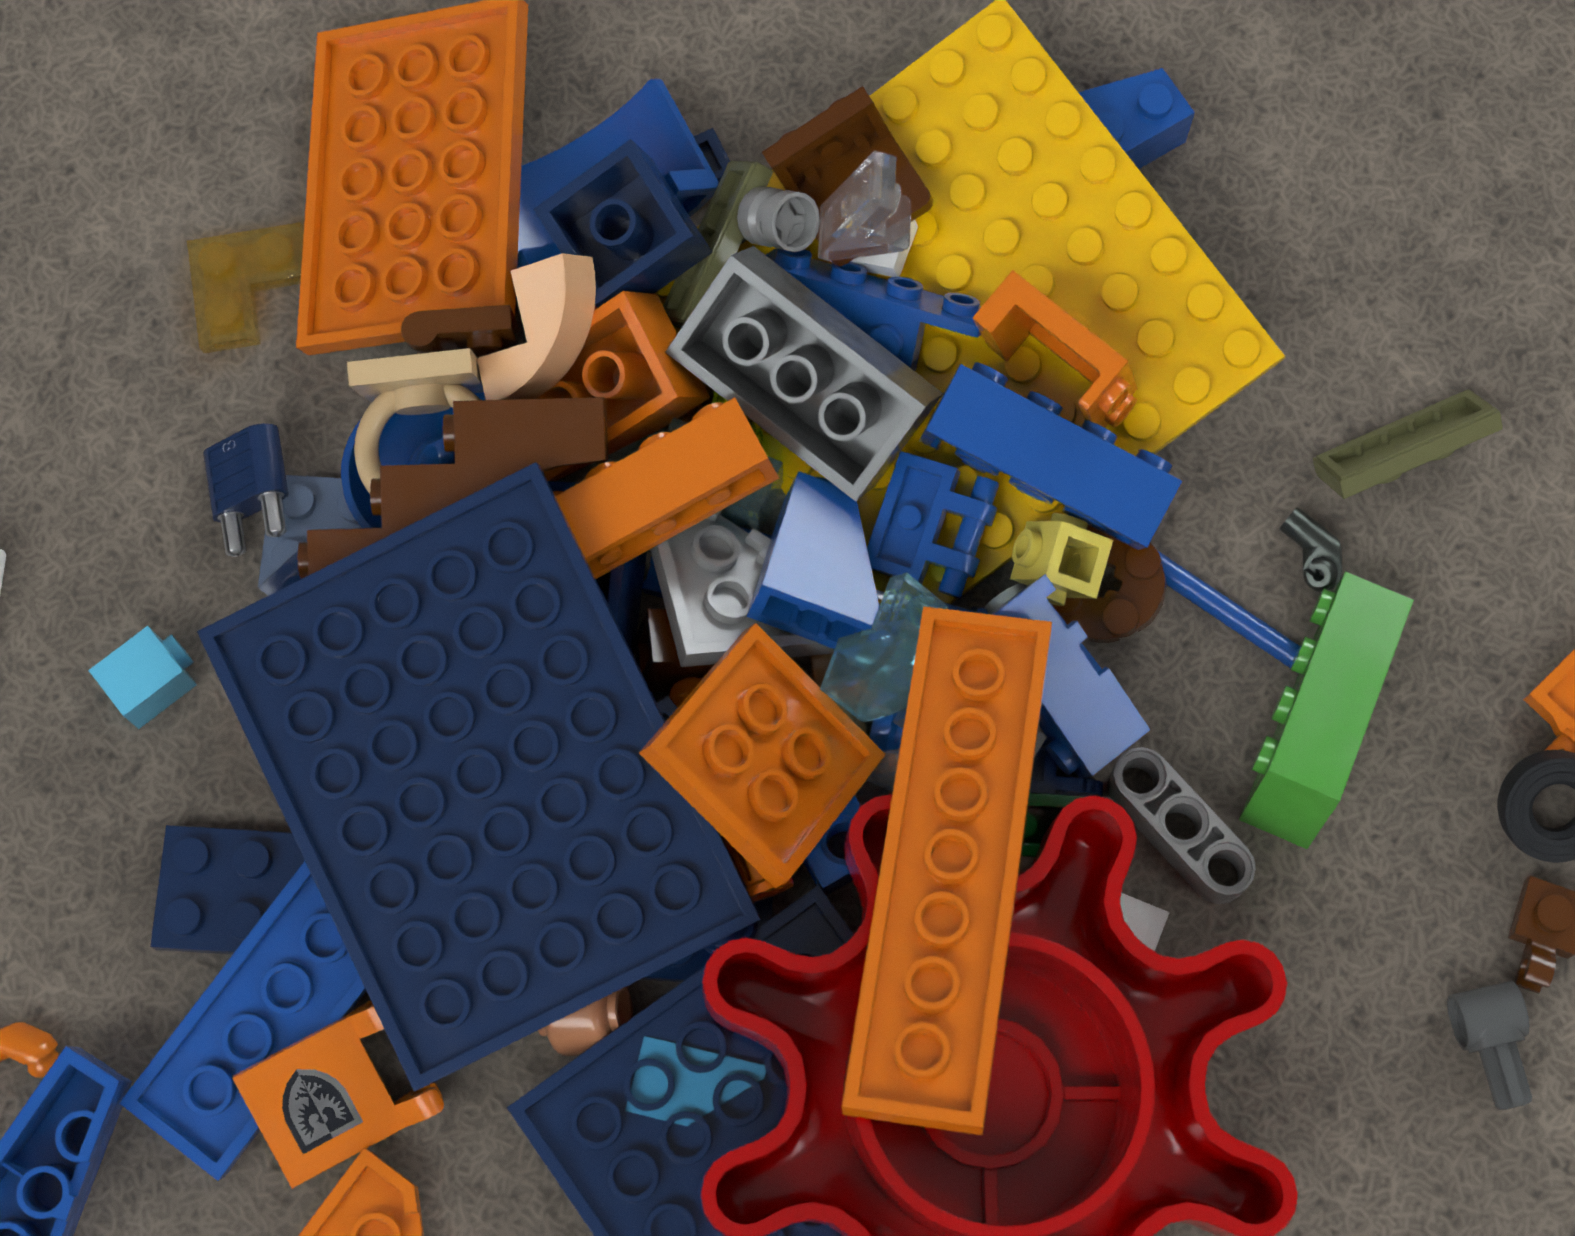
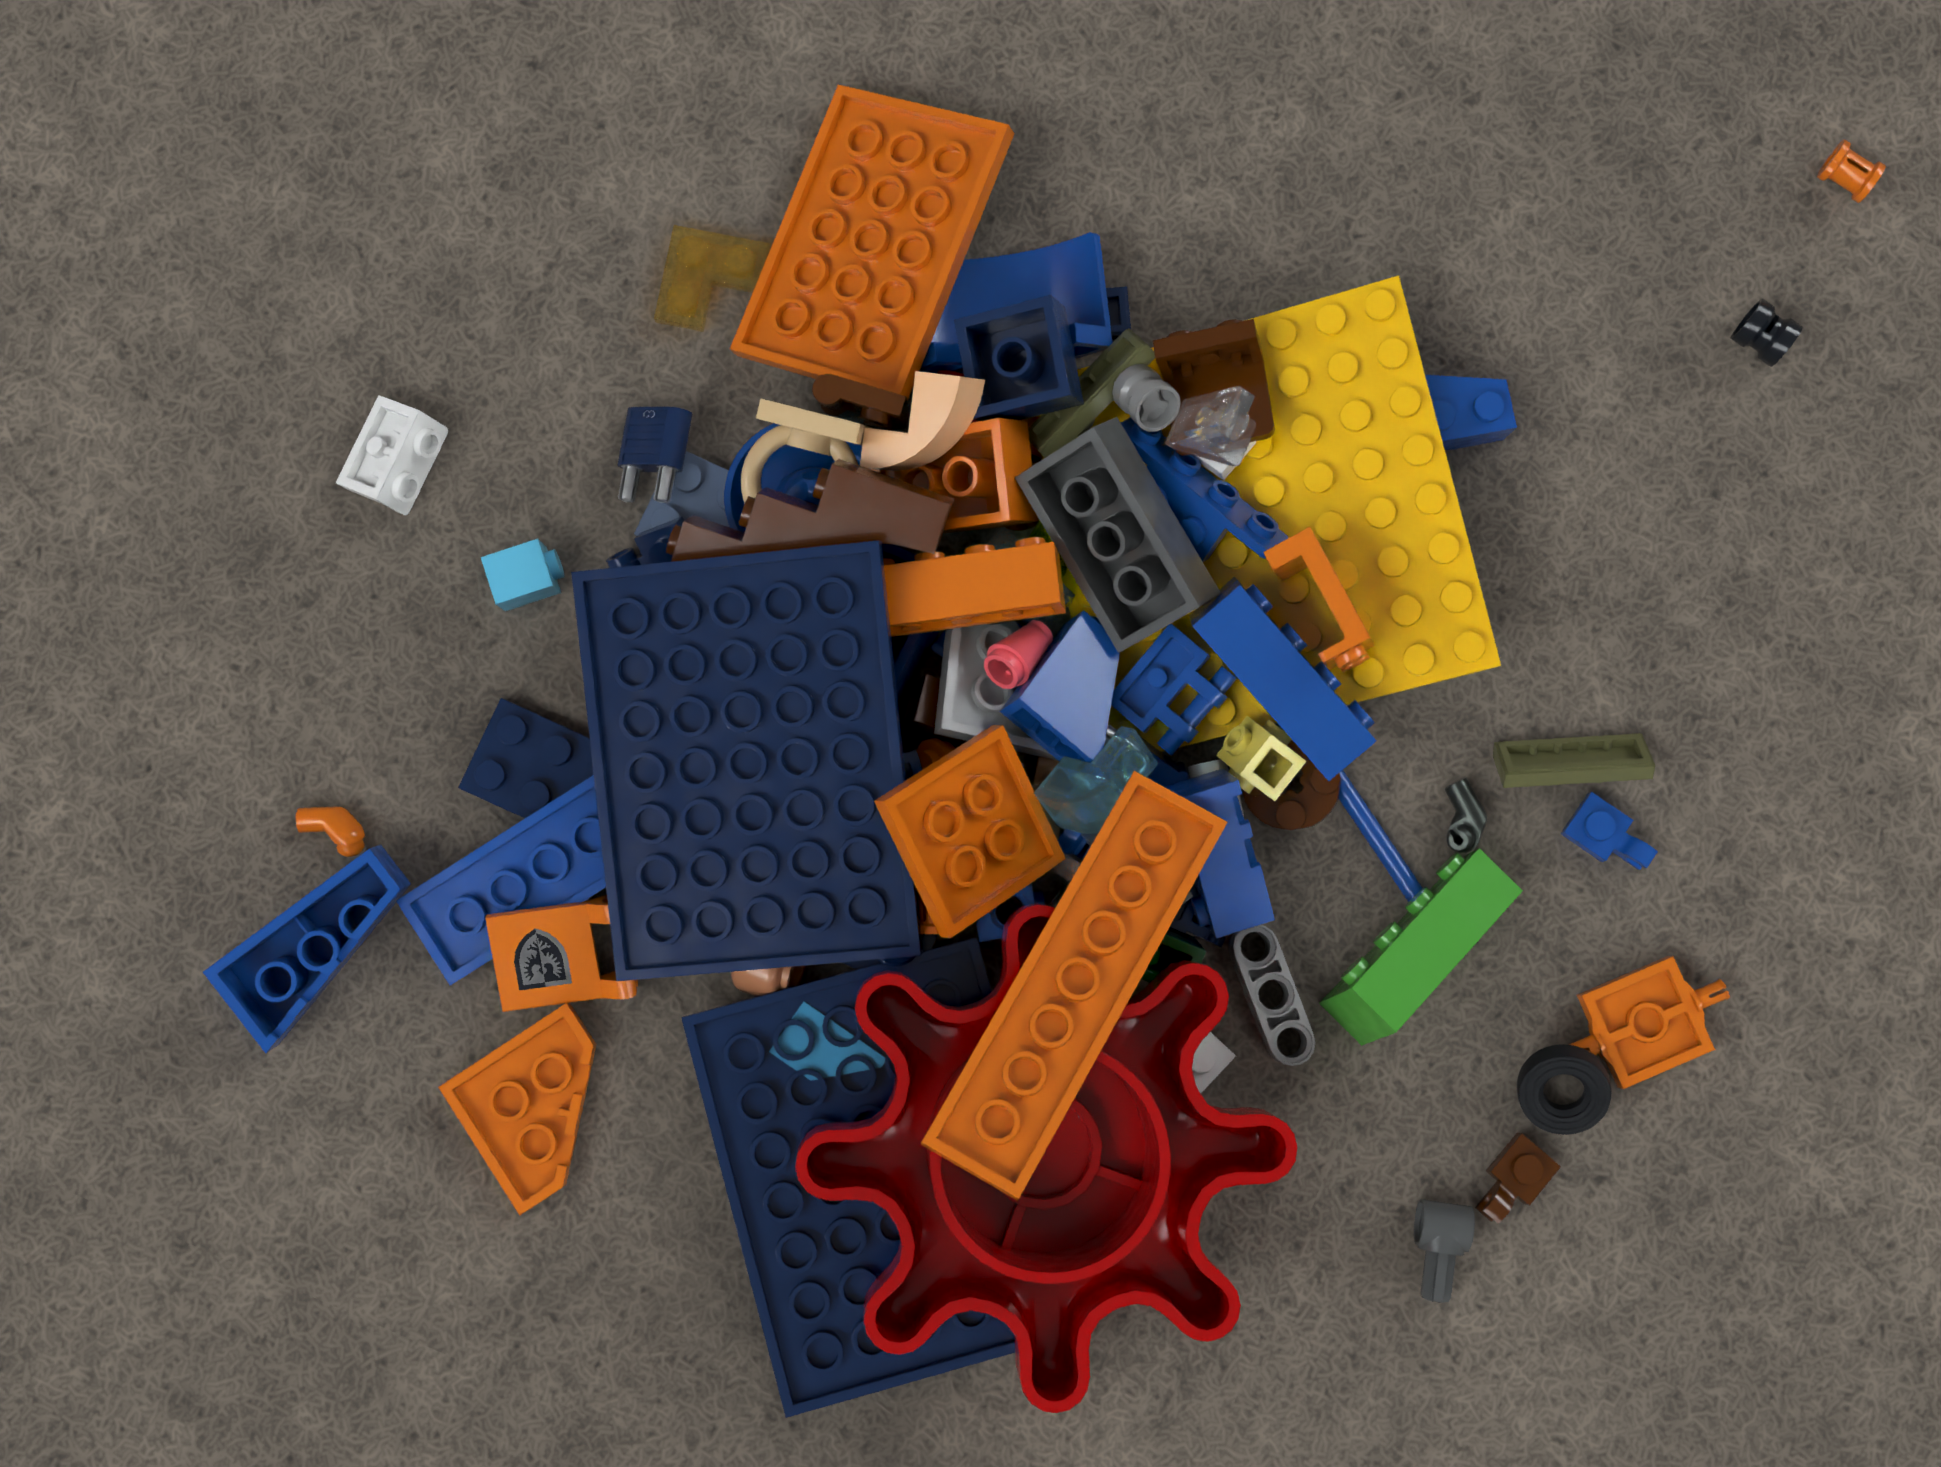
camera: 15 degrees right, 10 degrees up
(742, 547) = (1017, 655): none -> coral cone
(1471, 510) = (1602, 830): none -> blue plate

